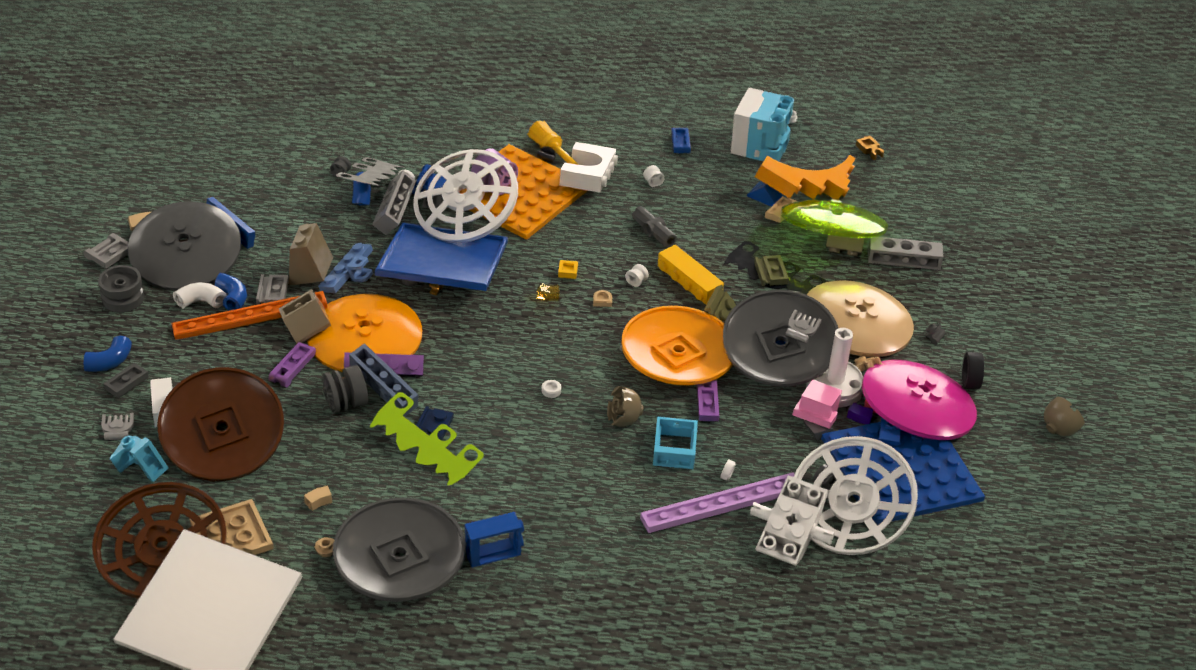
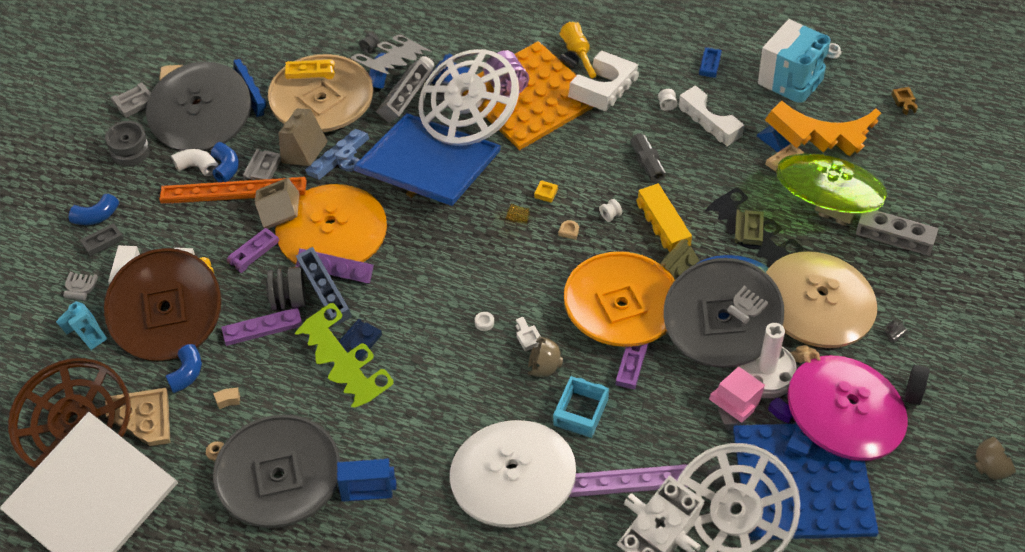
camera: 20 degrees right, 10 degrees up
(269, 480) = (189, 369): none -> blue cylinder
(292, 194) = (310, 69): none -> yellow plate
(328, 204) = (345, 95): none -> tan dish
(328, 430) = (261, 326): none -> medium lavender plate
(598, 392) = (527, 335): none -> white plate
(653, 522) = (519, 494): none -> white dish
(716, 192) = (725, 128): none -> white arch
(728, 470) = (623, 447): white tile -> none

